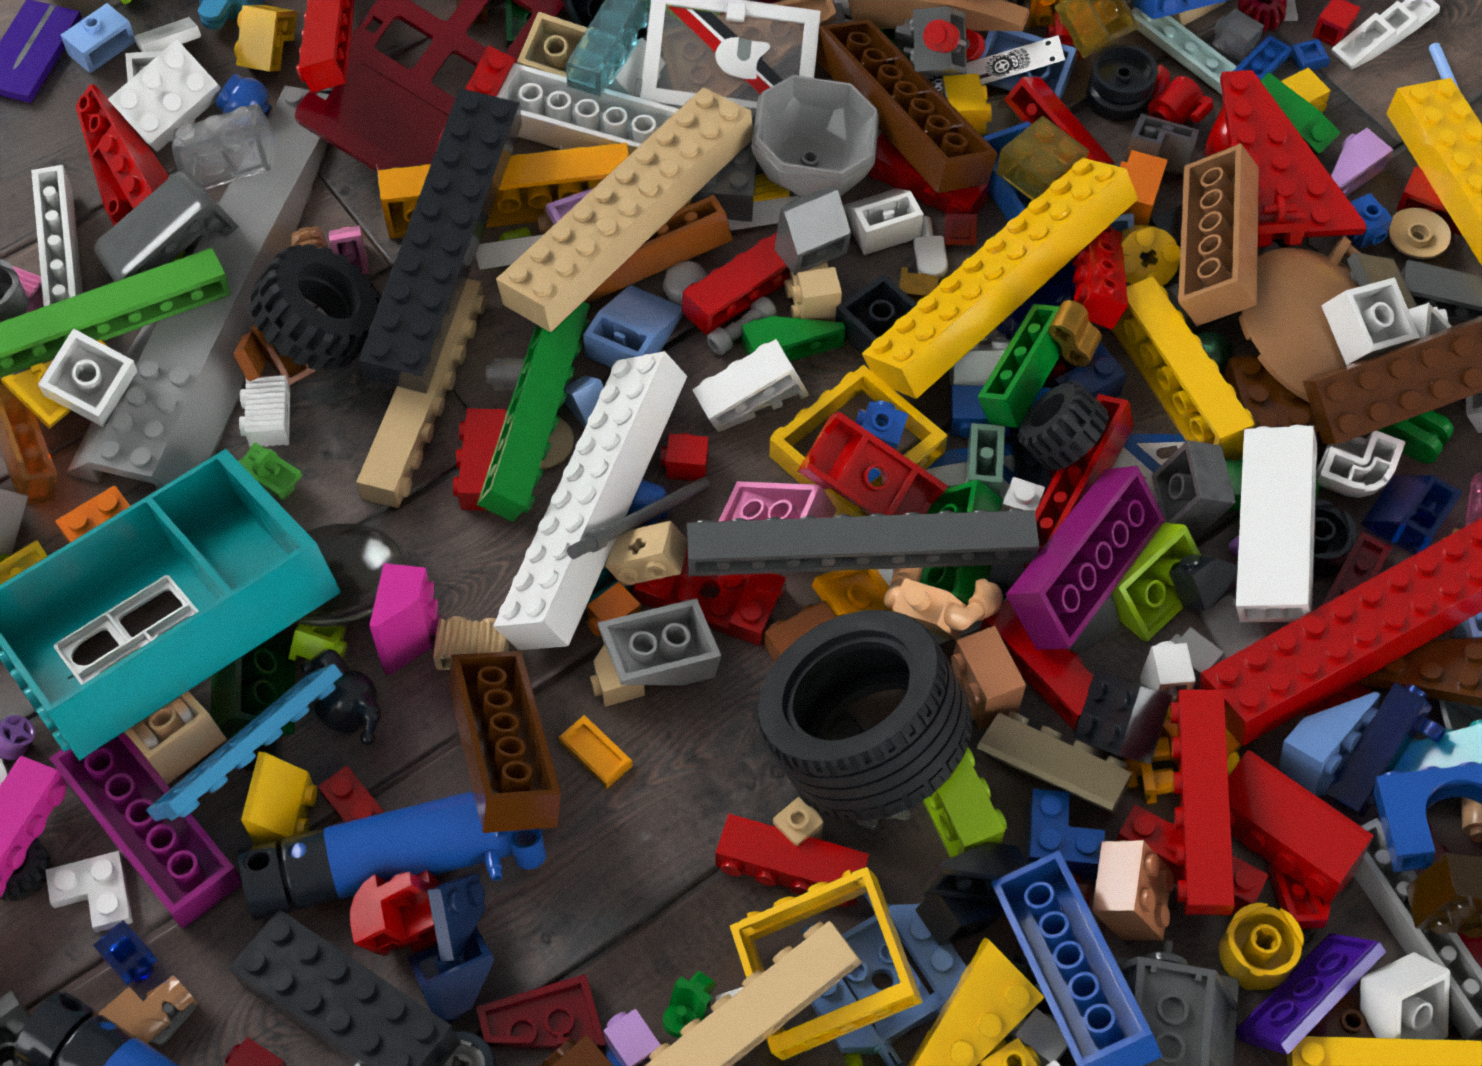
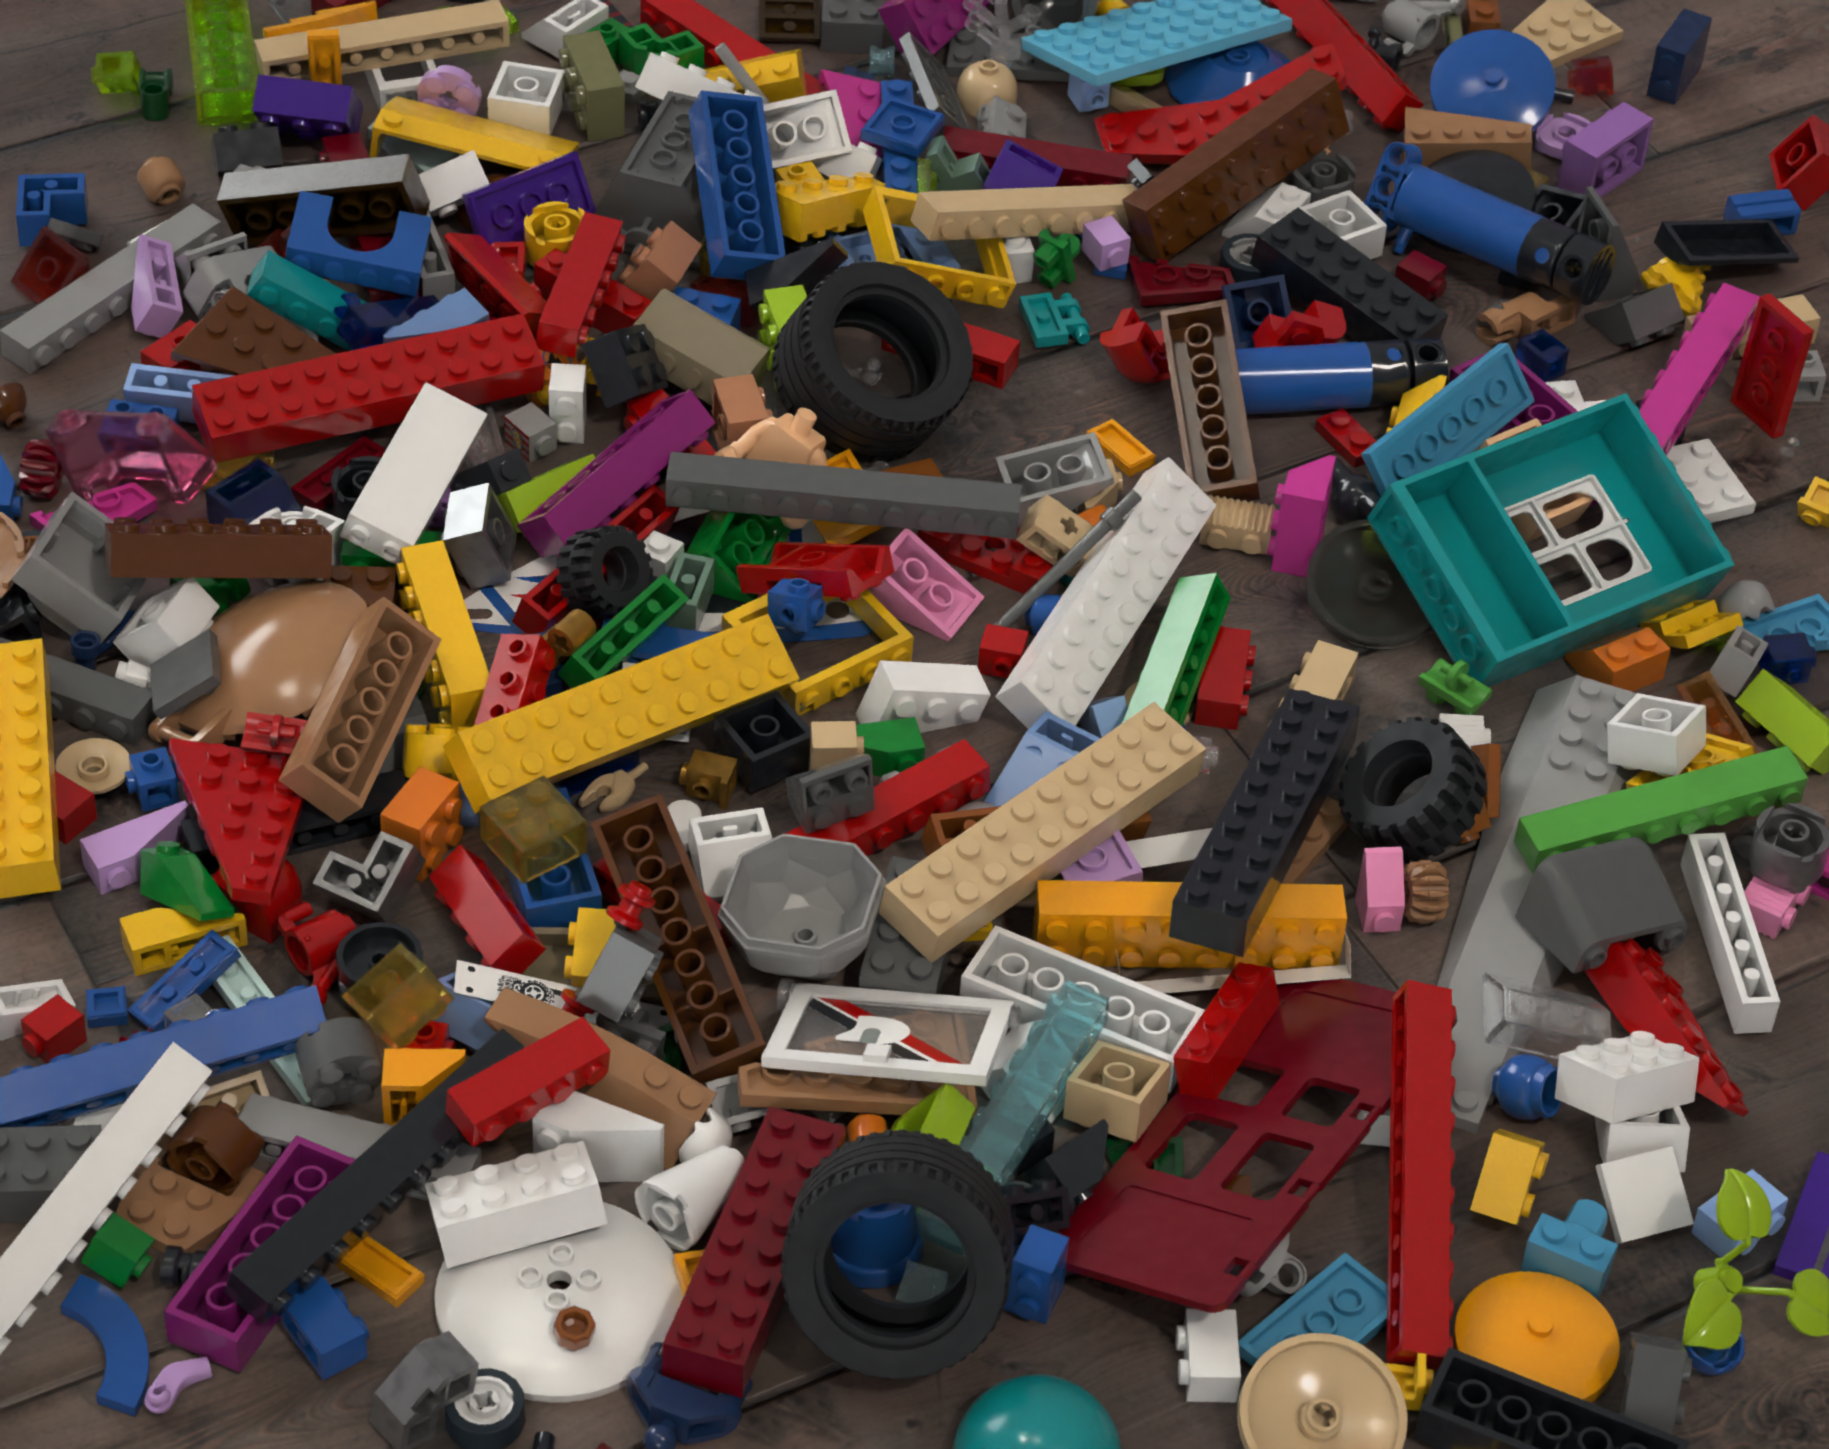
camera: 175 degrees left, 15 degrees down
(455, 913) = (1255, 324): dark blue wing -> none
(582, 862) = (1136, 349): none -> red brick
(693, 924) = (1045, 322): none -> teal plate
(1370, 320) = (238, 594): white brick -> none

